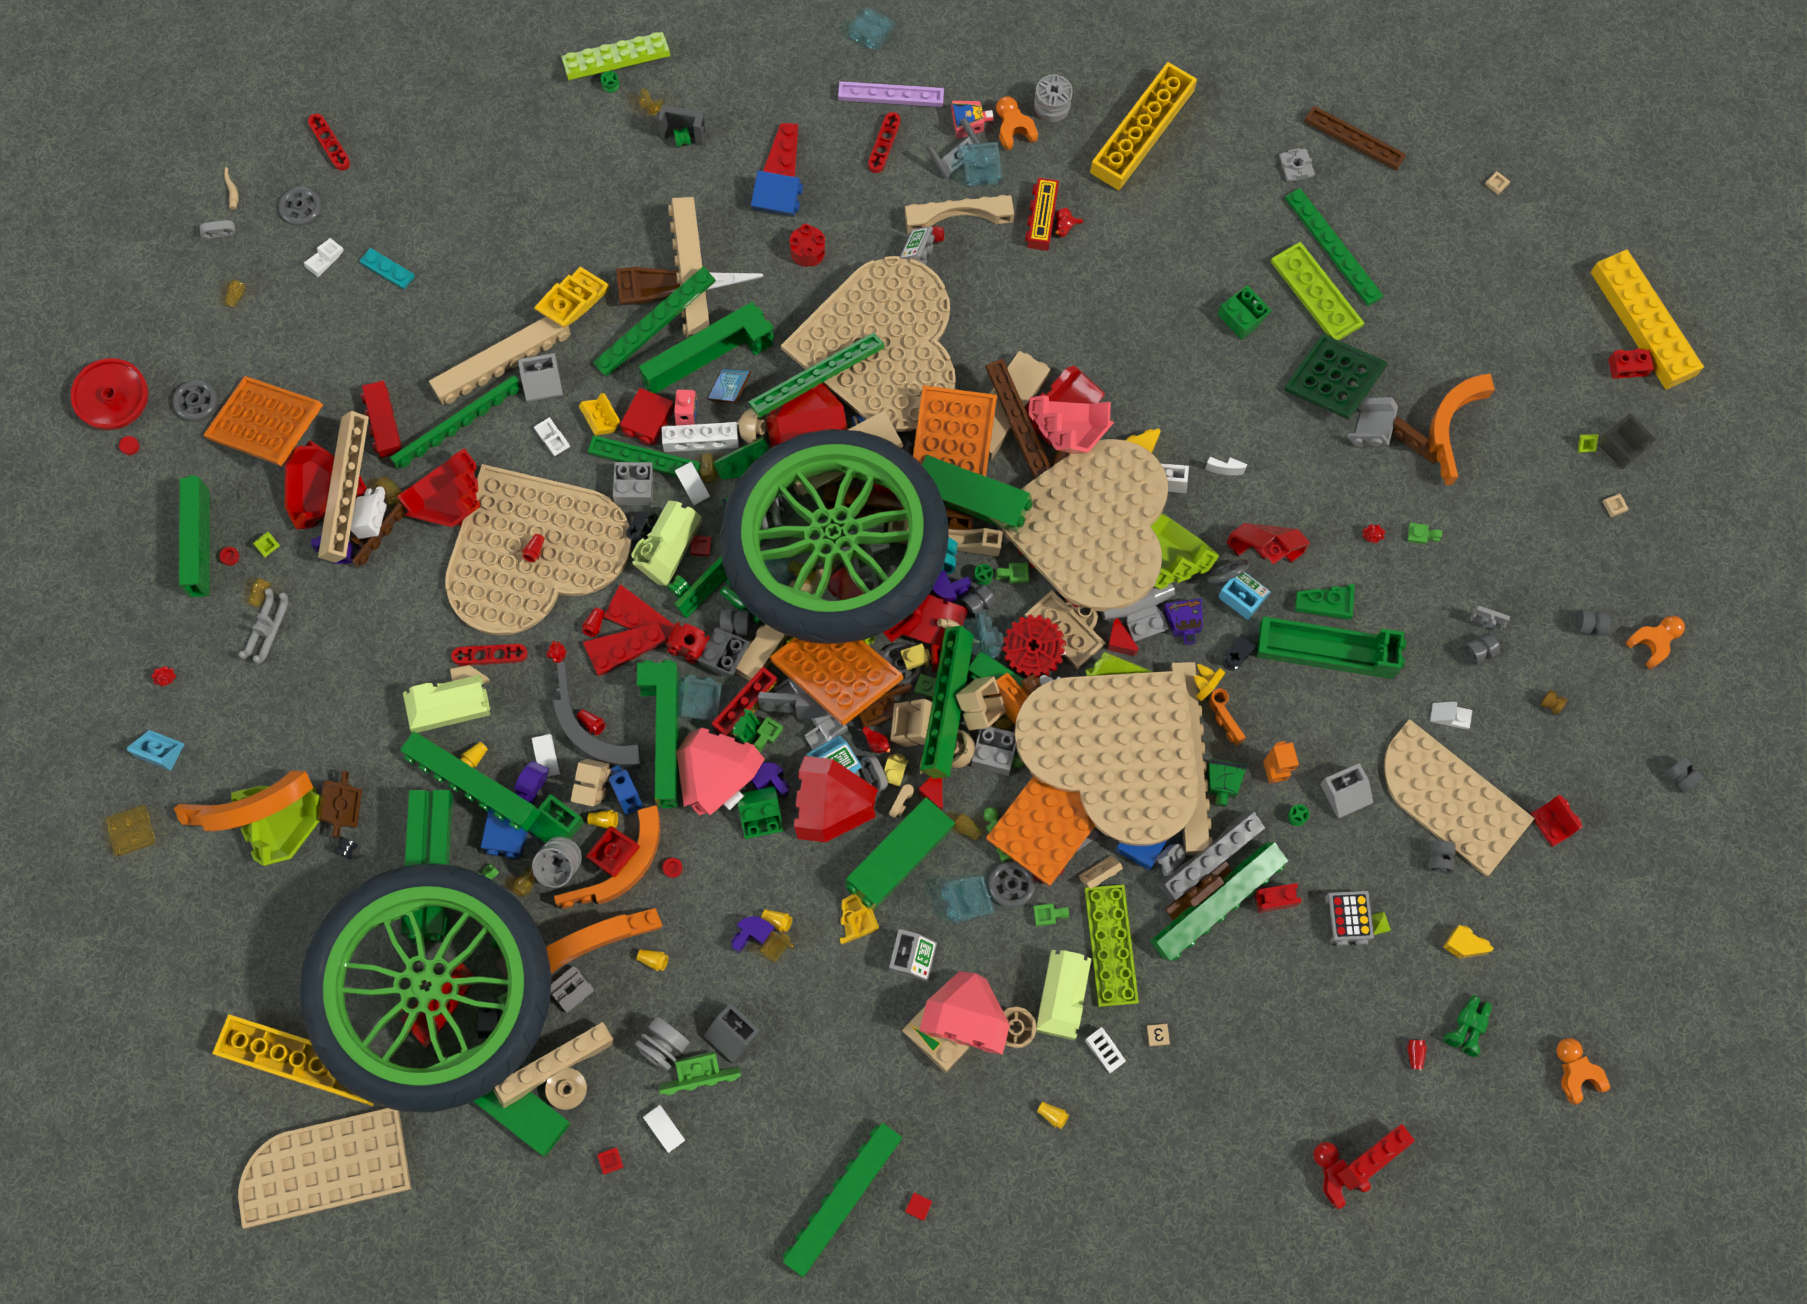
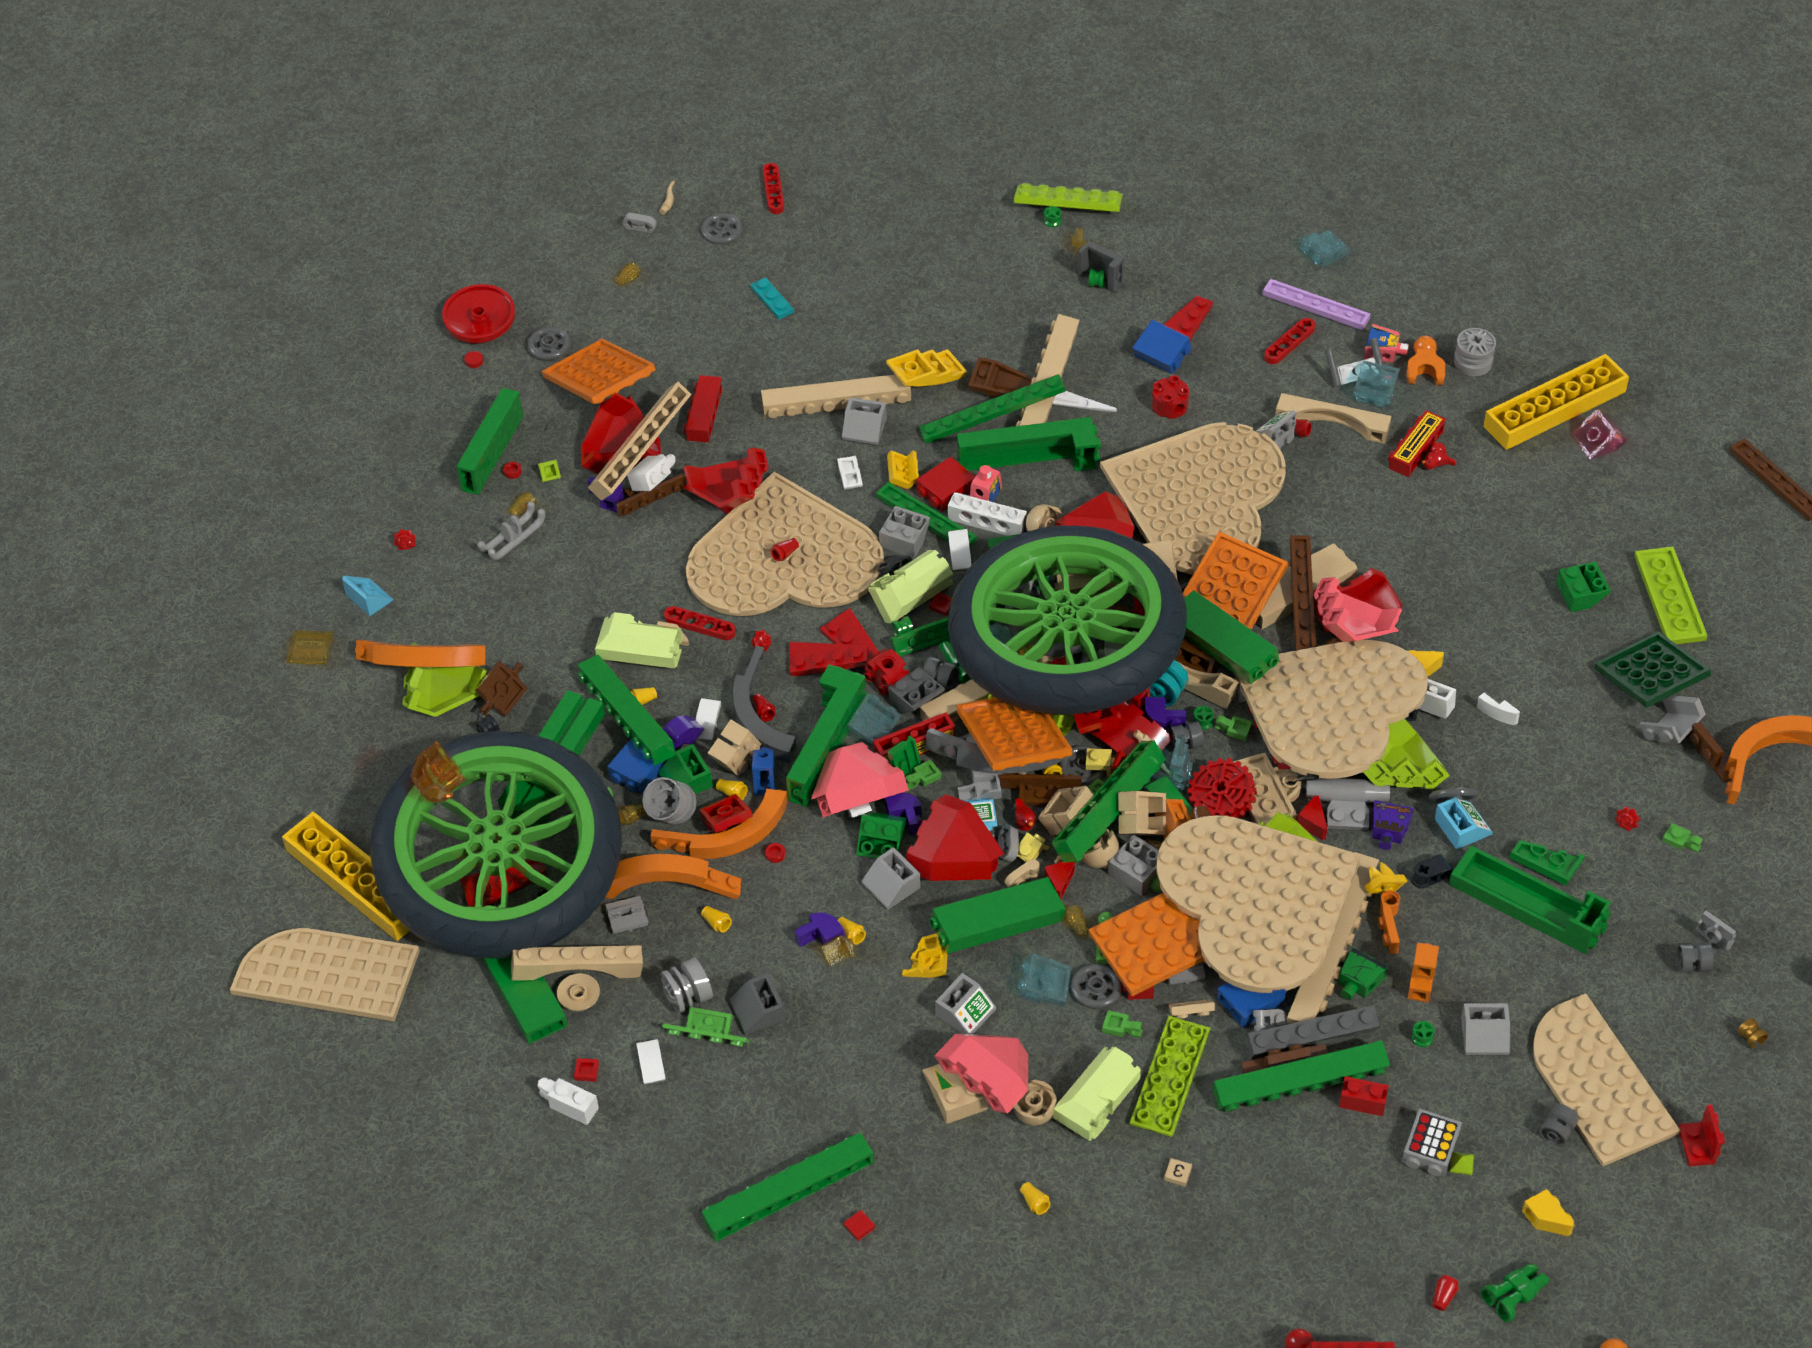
camera: 30 degrees right, 20 degrees down
(325, 256) = (724, 271): white slope -> none
(344, 958) = (436, 773): none -> clear orange brick
(391, 490) = (681, 461): clear yellow brick -> none
(450, 426) = (768, 432): green plate -> none
(593, 623) = (805, 631): red cone -> none
(610, 1201) = (569, 1099): none -> white hinge
(707, 468) = (980, 544): clear yellow cone -> none
(729, 385) = (1036, 484): piece -> none
(790, 855) = (891, 879): none -> light grey slope
(816, 374) = (1121, 492): green plate -> none
(1111, 1046) = (1113, 1149): white slope -> none
(1192, 148) = (1598, 435): none -> clear pink slope
(1269, 541) = (1510, 784): red panel -> none
(1294, 172) = (1708, 488): light grey piece -> none
(1334, 247) = (1708, 565): green plate -> none
(1451, 715) = (1630, 1005): white slope -> none

